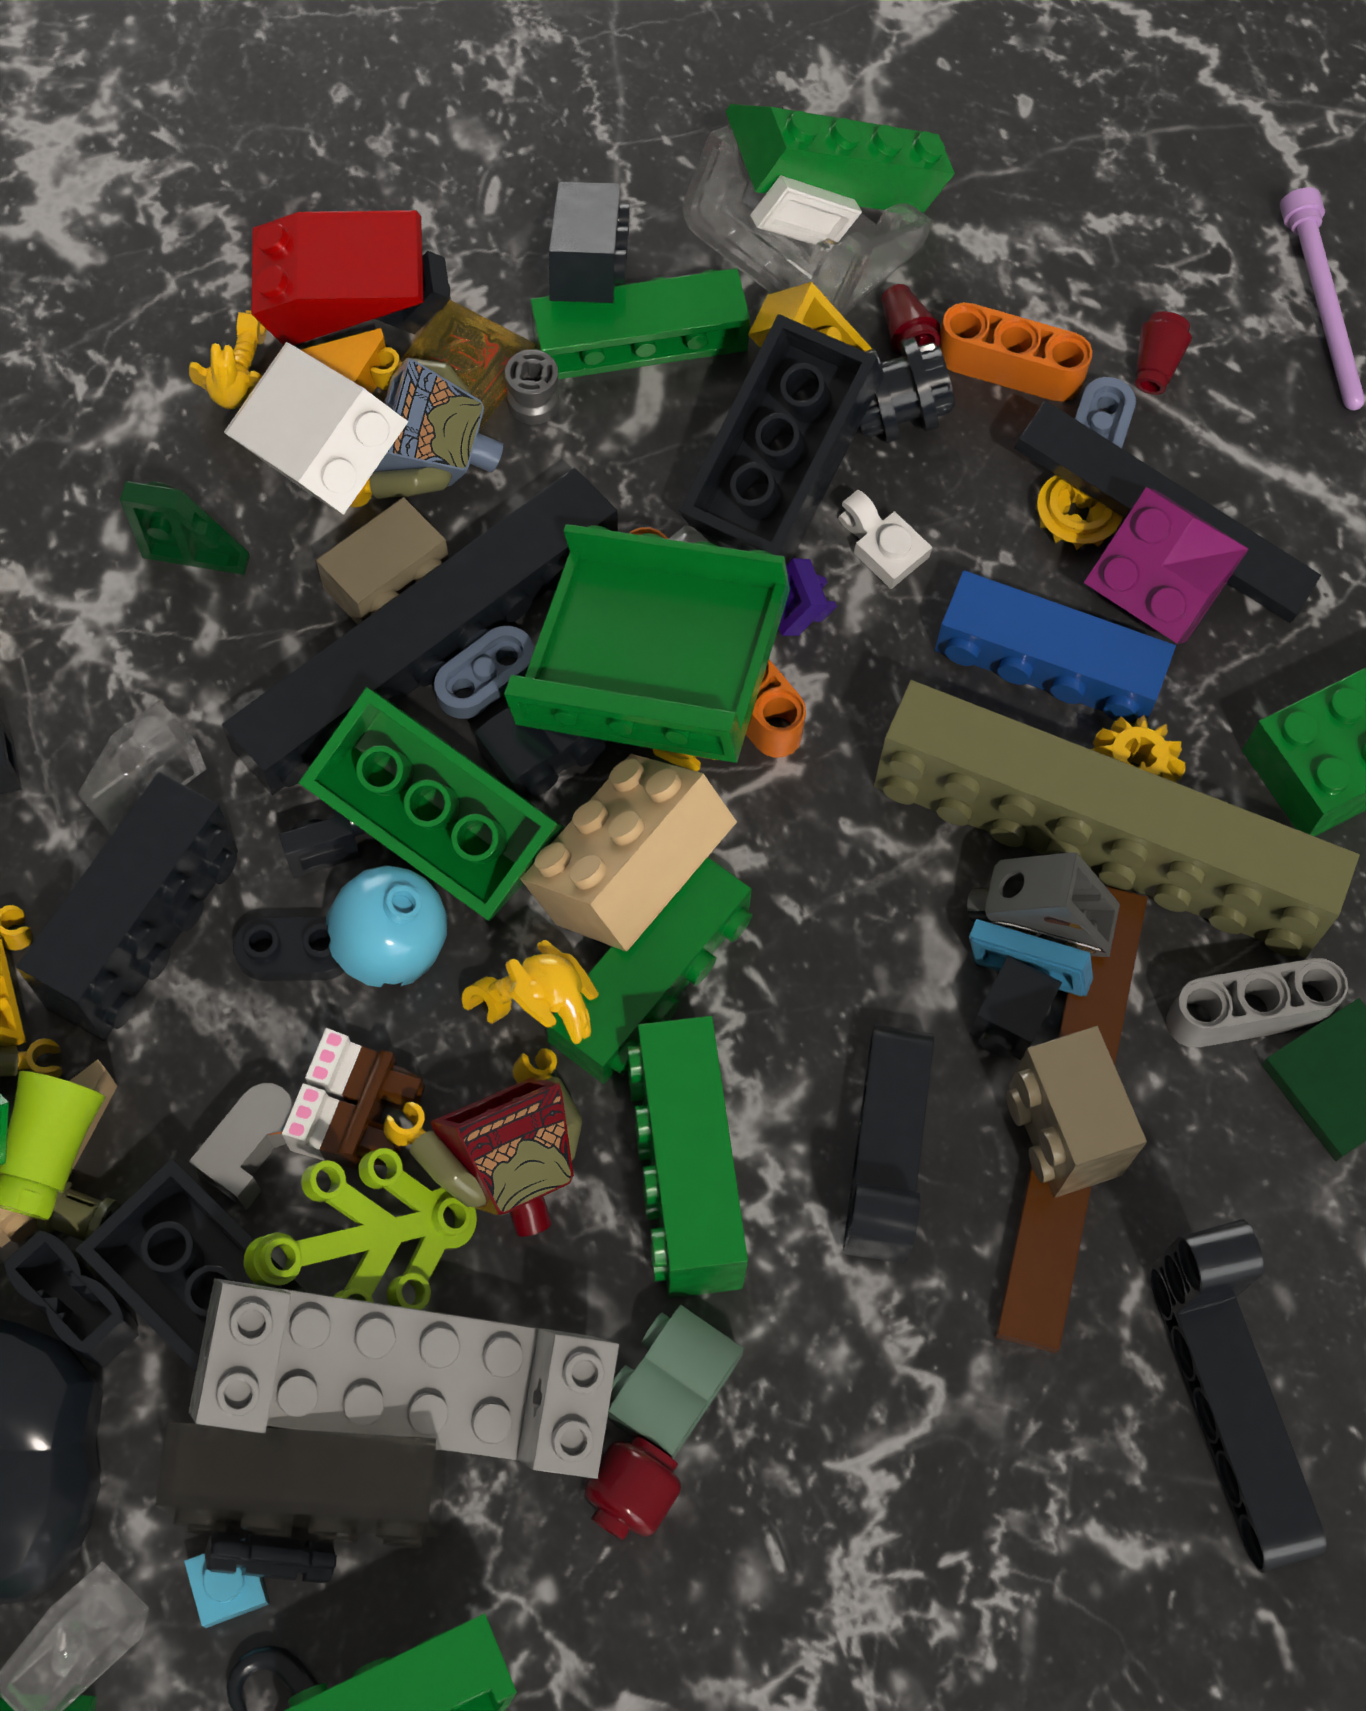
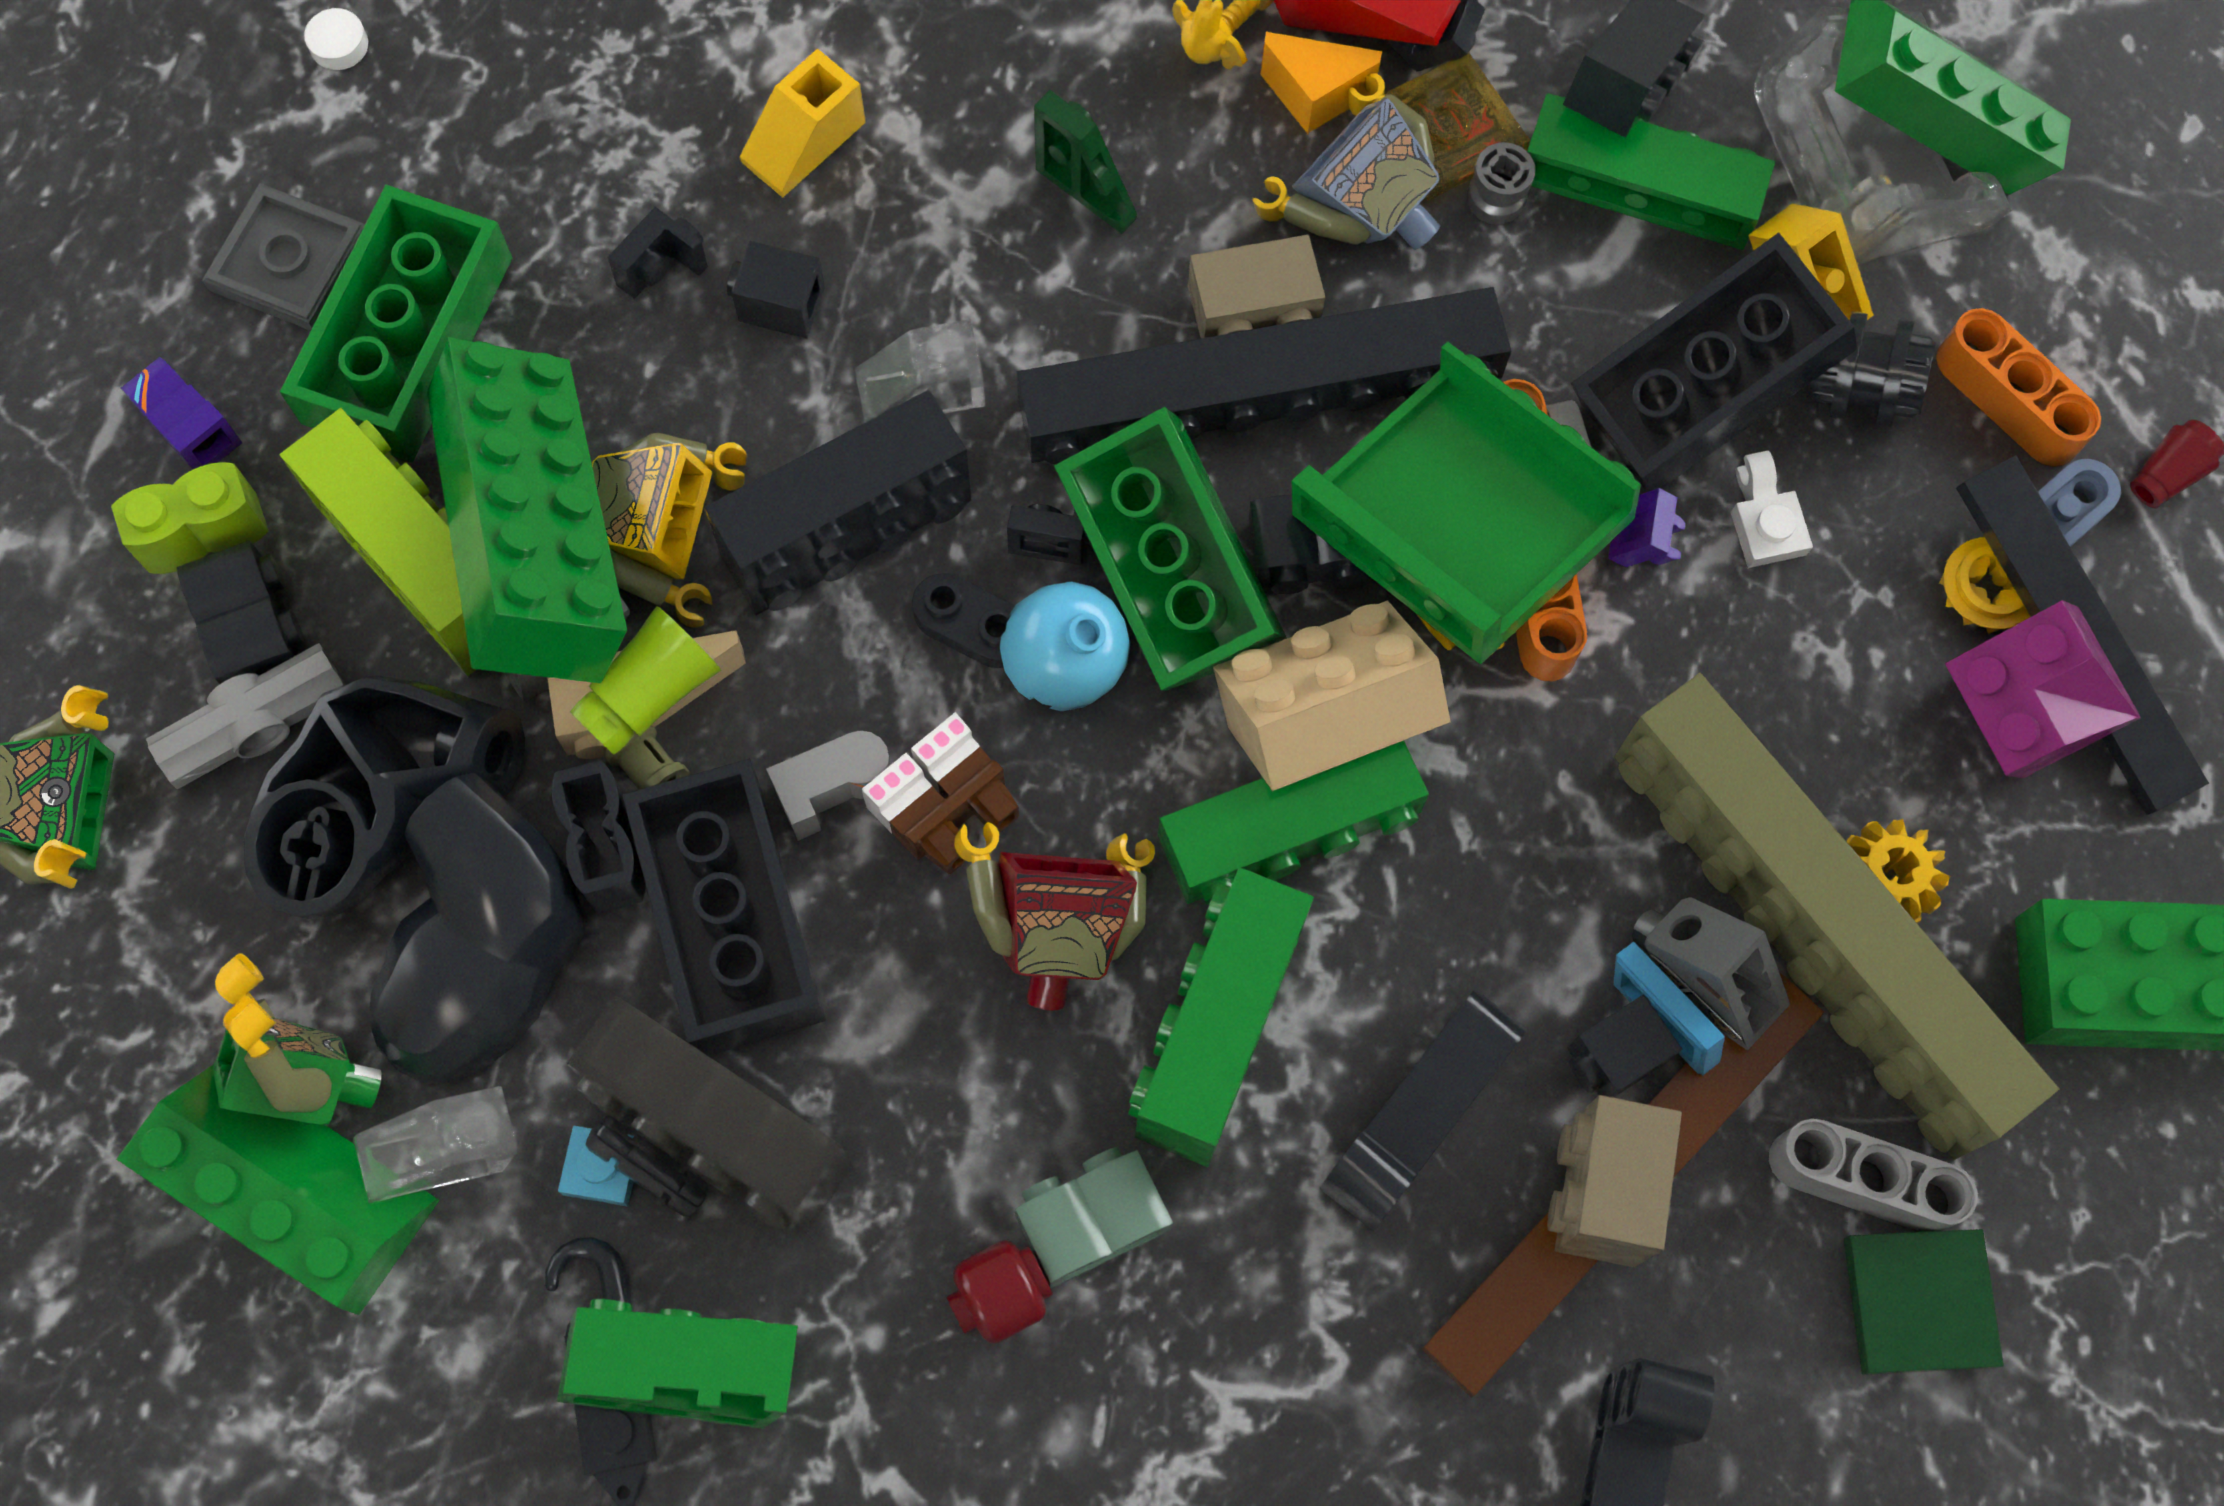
camera: 30 degrees right, 5 degrees up
(316, 427) = (1258, 124): white slope -> none
(377, 1232) = (895, 930): lime plant -> none
(403, 1373) = (847, 1072): light grey plate -> none
(480, 672) = (1292, 442): sand blue plate -> none
(539, 986) = (1172, 782): yellow piece -> none
(805, 212) = (1879, 136): white tile -> none
(908, 318) = (1927, 299): dark red cone -> none
(1053, 648) = (1876, 714): blue brick -> none

